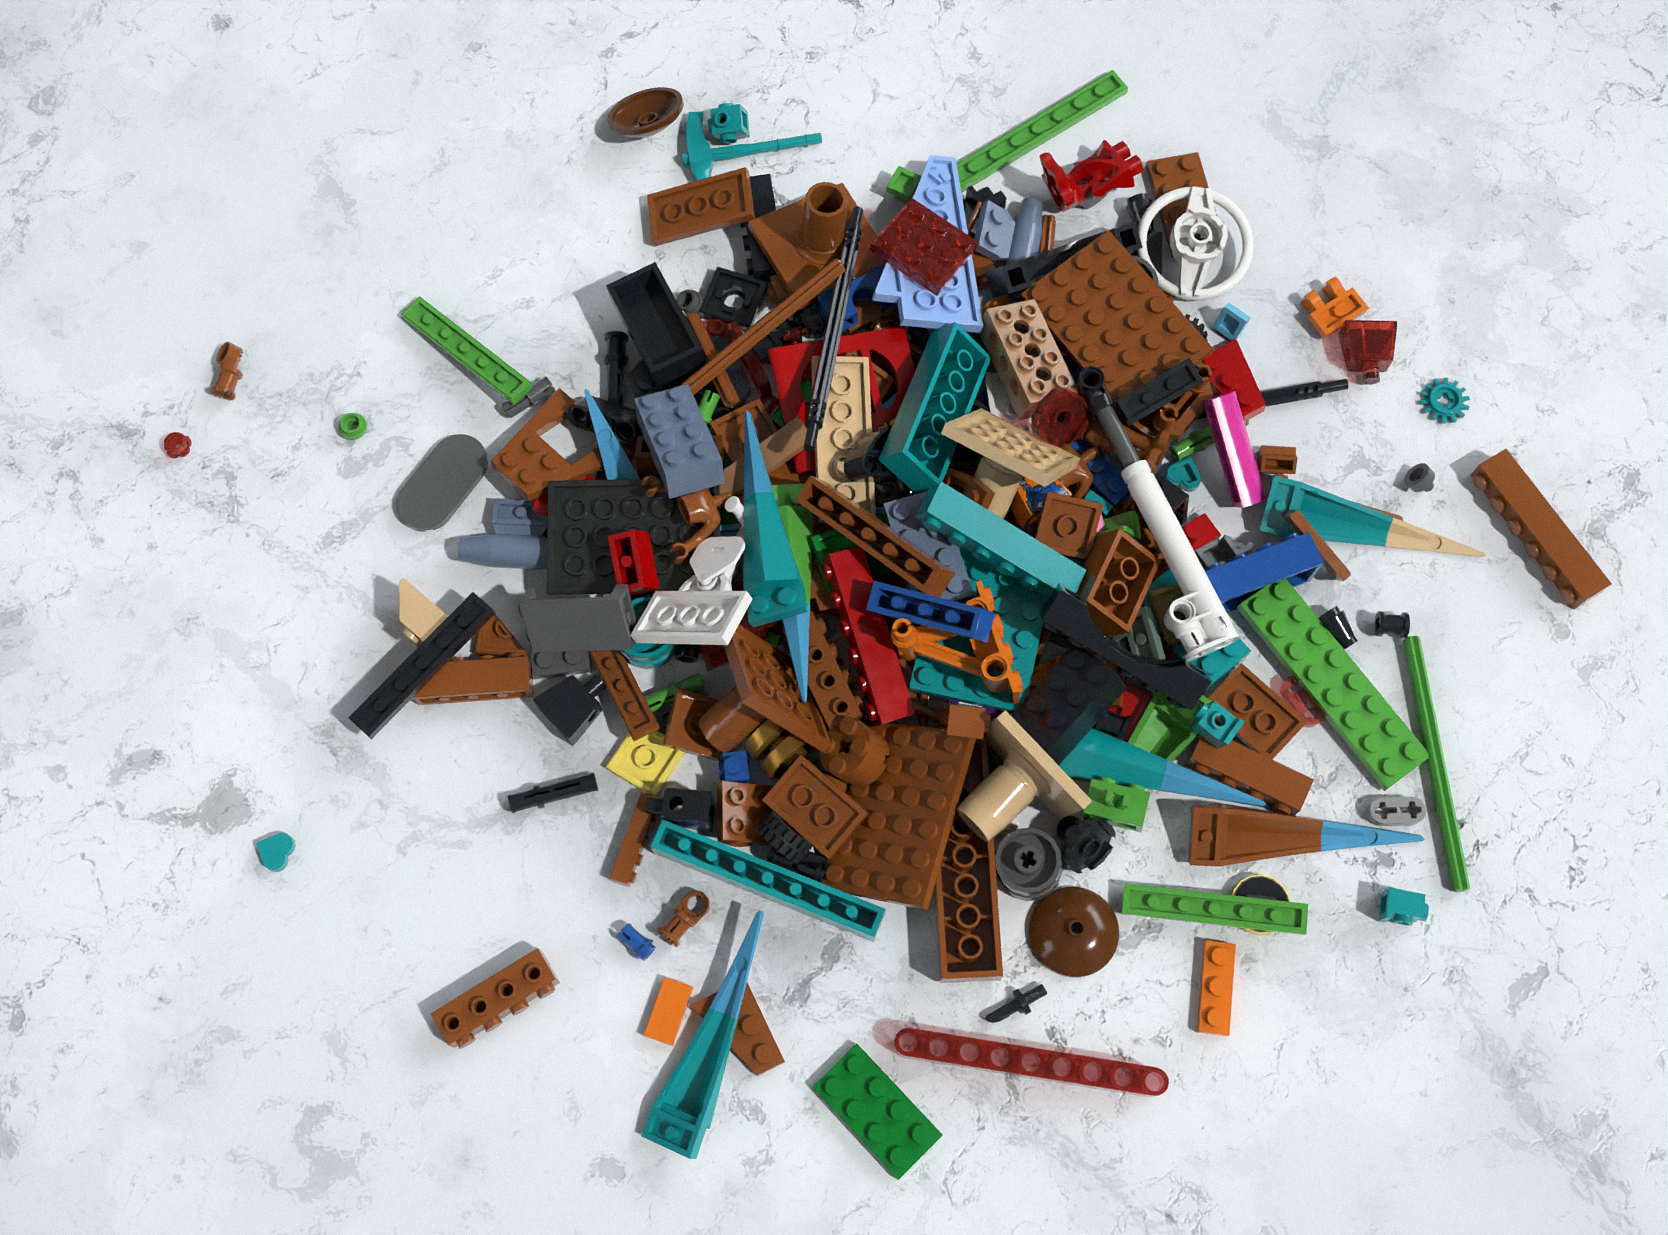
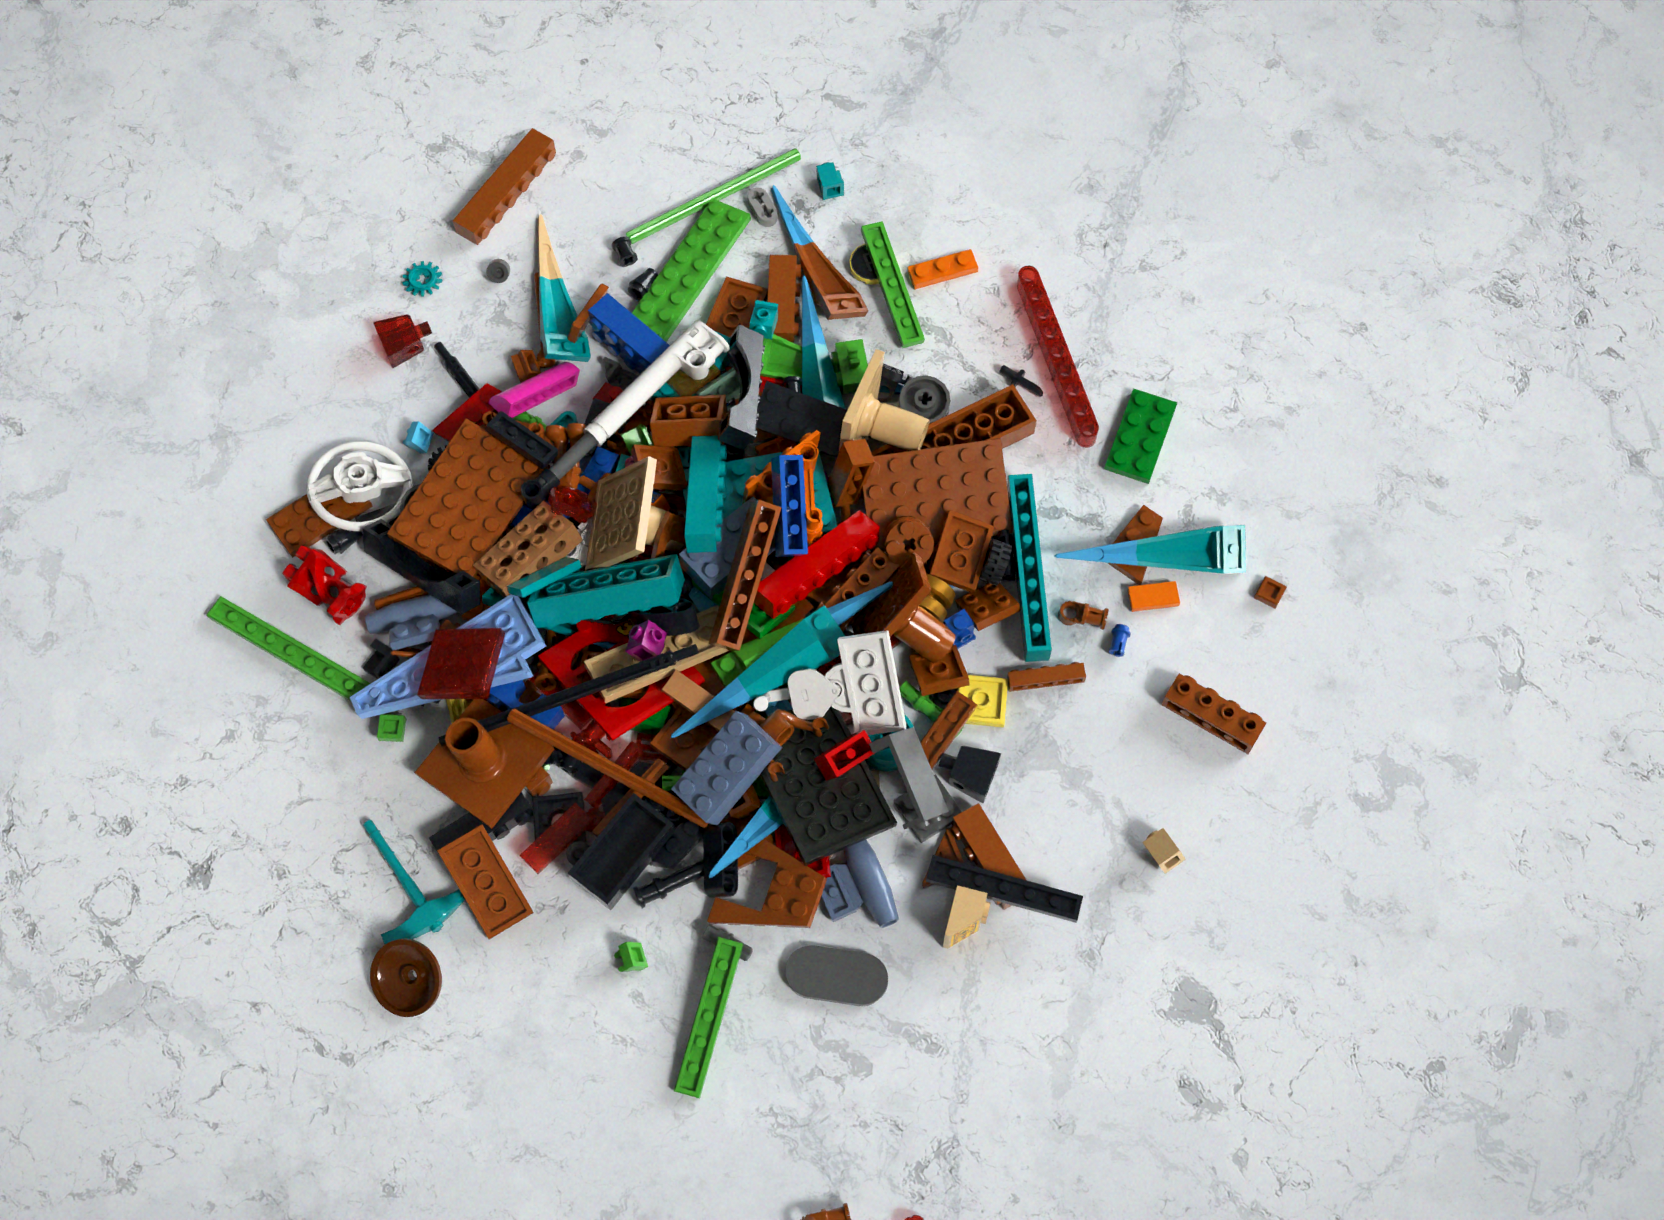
camera: 115 degrees left, 5 degrees down
(275, 851) = (1200, 937): teal tile -> none
(352, 419) = (822, 1072): bright green plate -> none
(378, 856) = (1163, 850): none -> tan brick
(554, 792) = (1044, 752): black pin -> none
(561, 309) = (632, 957): none -> bright green tile
(605, 1153) = (1270, 592): none -> dark orange tile
(696, 809) = (1008, 644): black torso -> none
(710, 284) = (556, 838): none -> clear red tile
(729, 123) = (391, 892): teal brick -> none
(854, 417) = (645, 641): none -> magenta brick
(985, 358) = (544, 577): none -> teal tile
(1069, 952) = (959, 376): reddish brown dish -> none
(1297, 702) = (712, 289): clear red beam -> none
(1330, 316) = (377, 369): orange plate -> none

